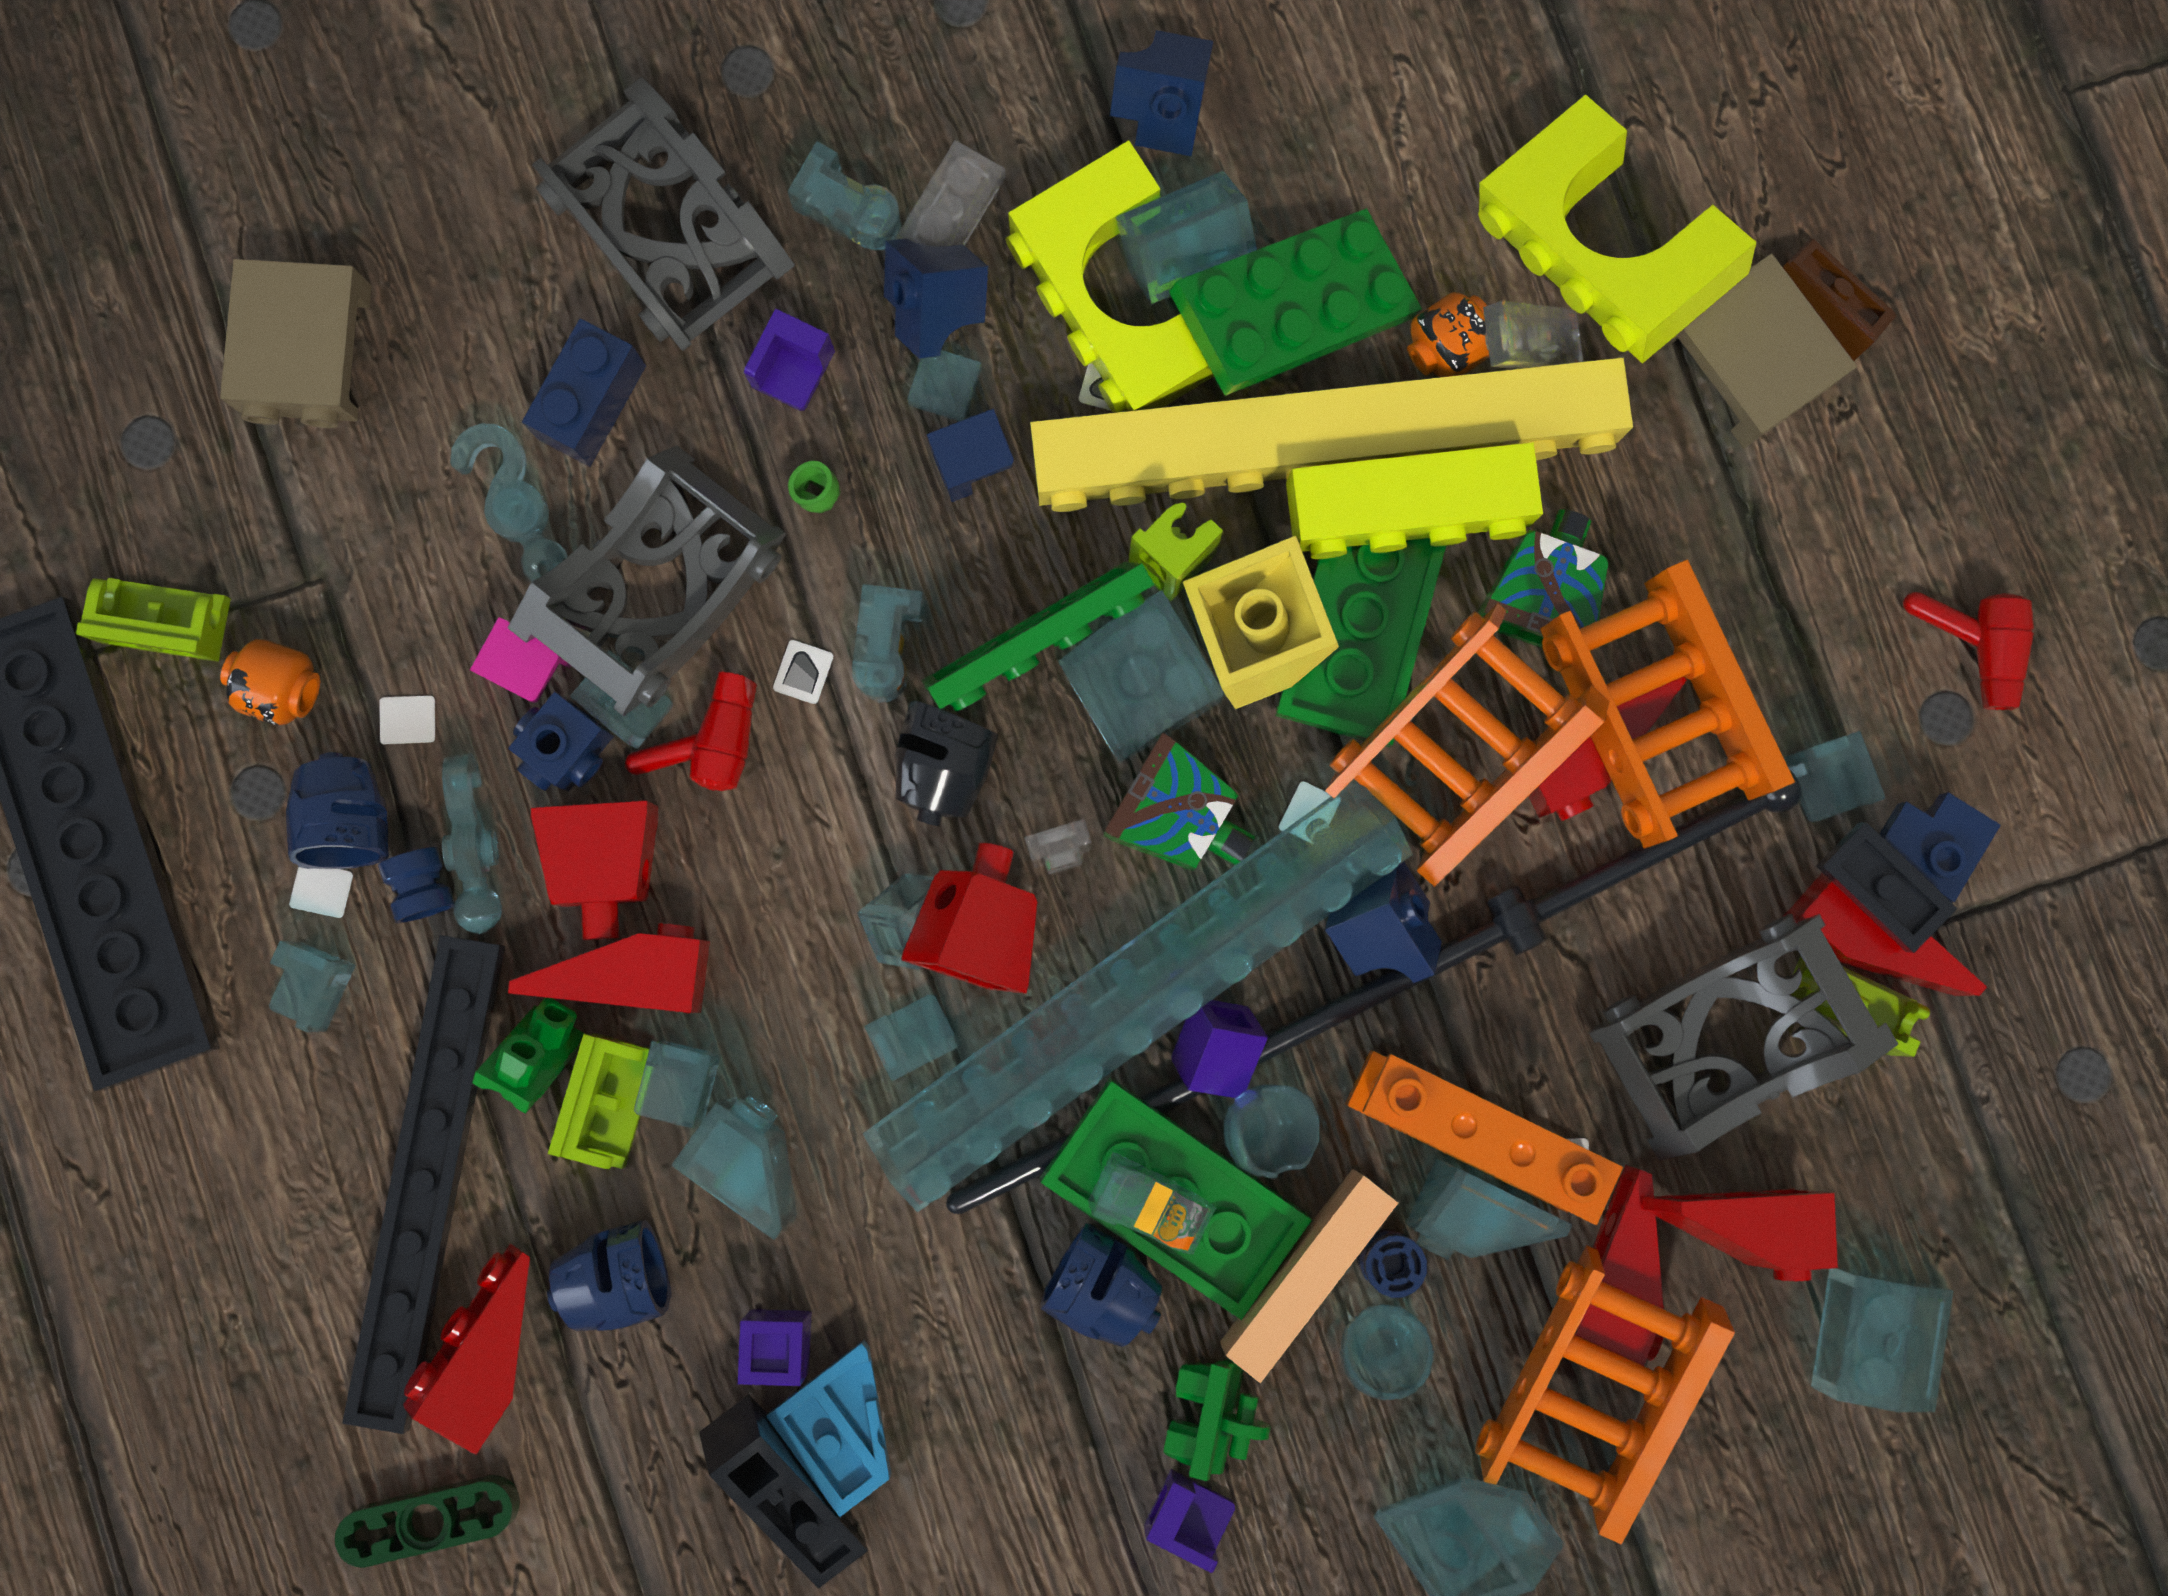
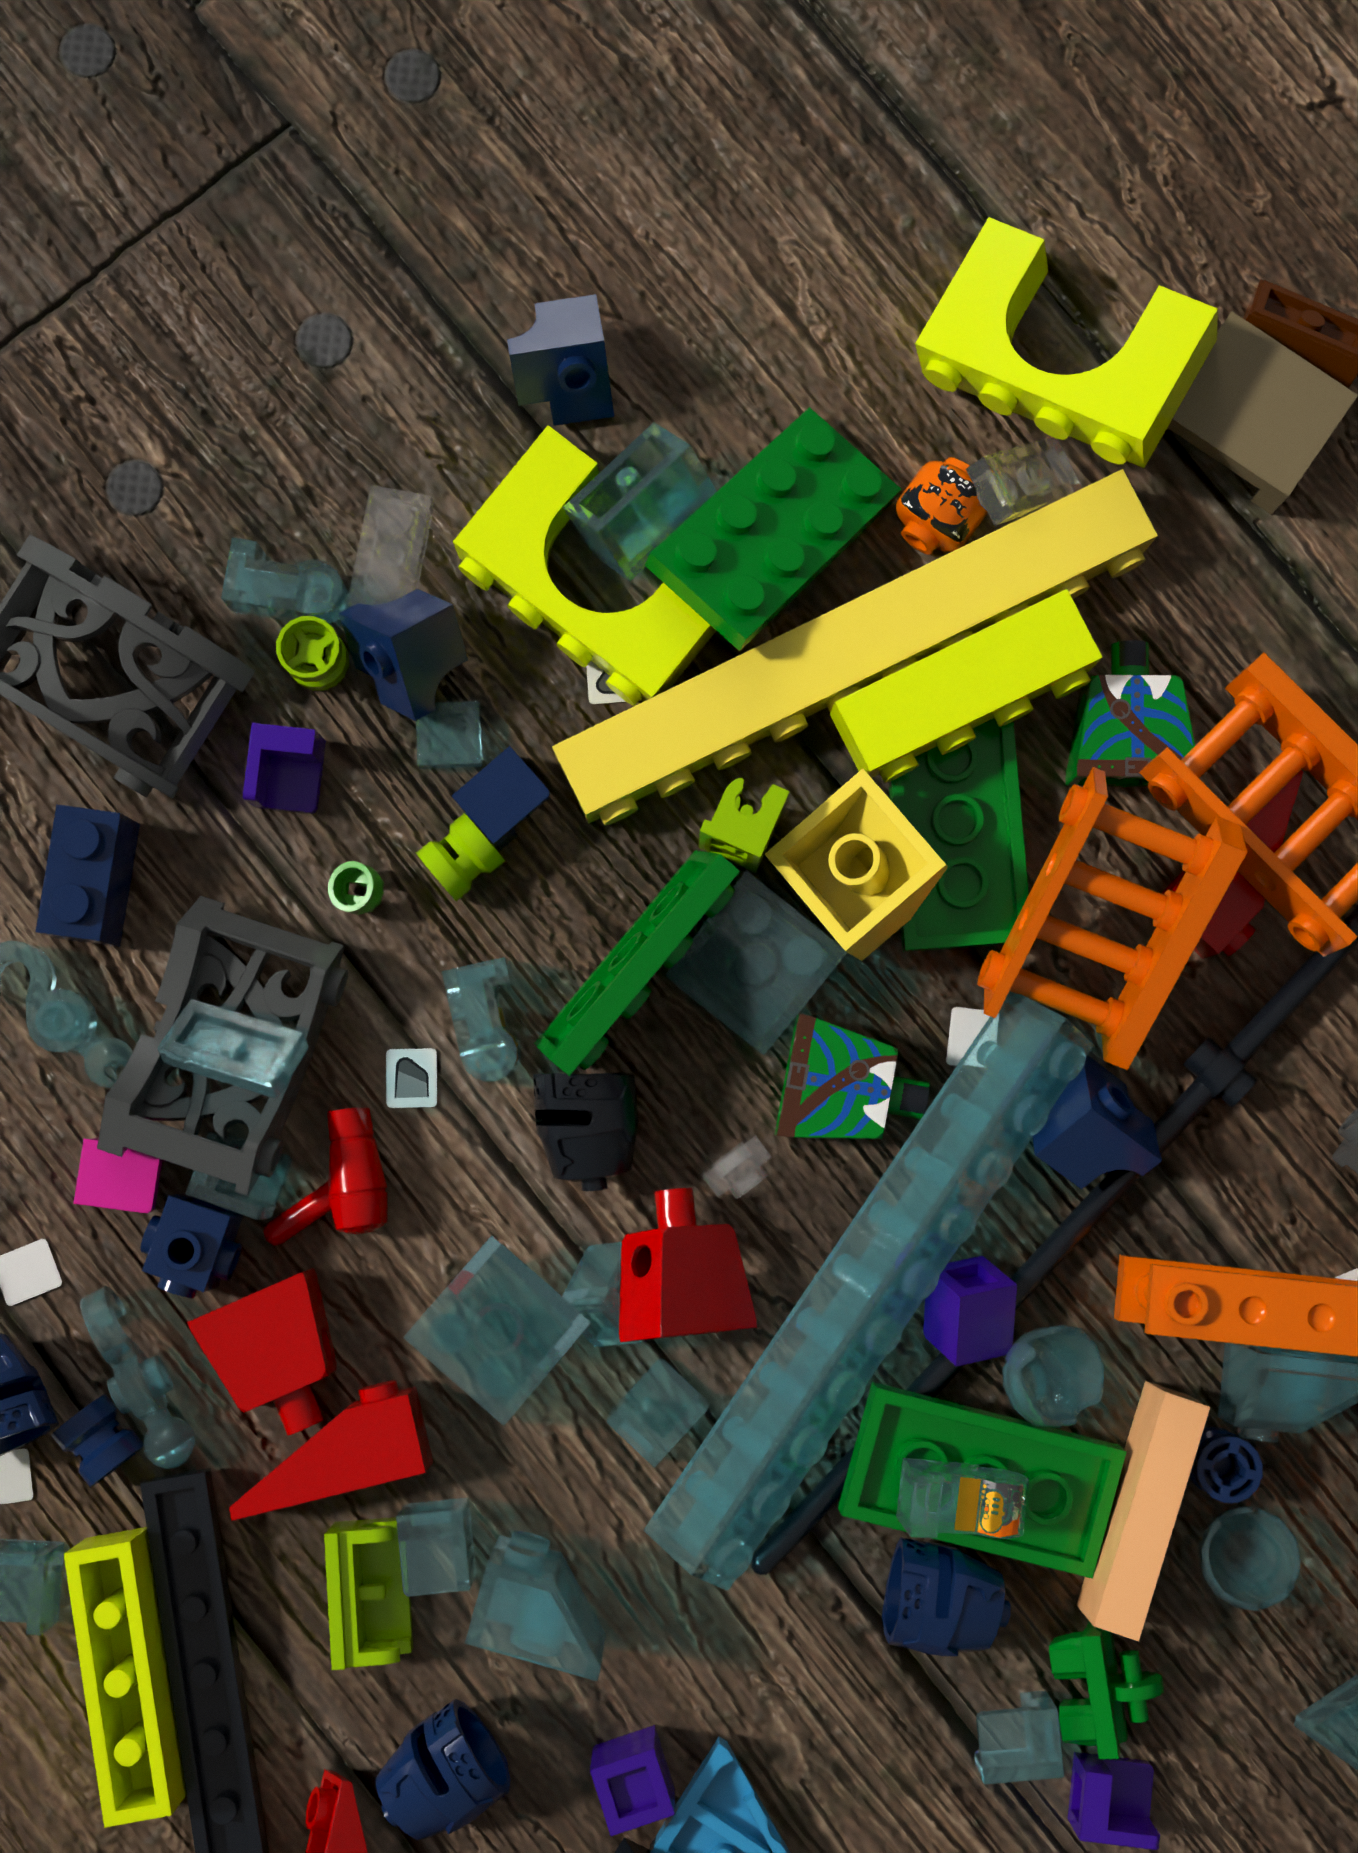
camera: 15 degrees left, 0 degrees up
(367, 1095) = (125, 1677): none -> neon yellow brick
(531, 1055) = (278, 1574): green hips -> none
(657, 583) = (233, 1048): none -> clear light blue plate
(797, 912) = (497, 1330): none -> clear light blue slope
(846, 256) = (304, 642): none -> lime wheel
(915, 492) = (460, 857): none -> lime wheel
(1125, 1437) = (1020, 1741): none -> clear light blue panel

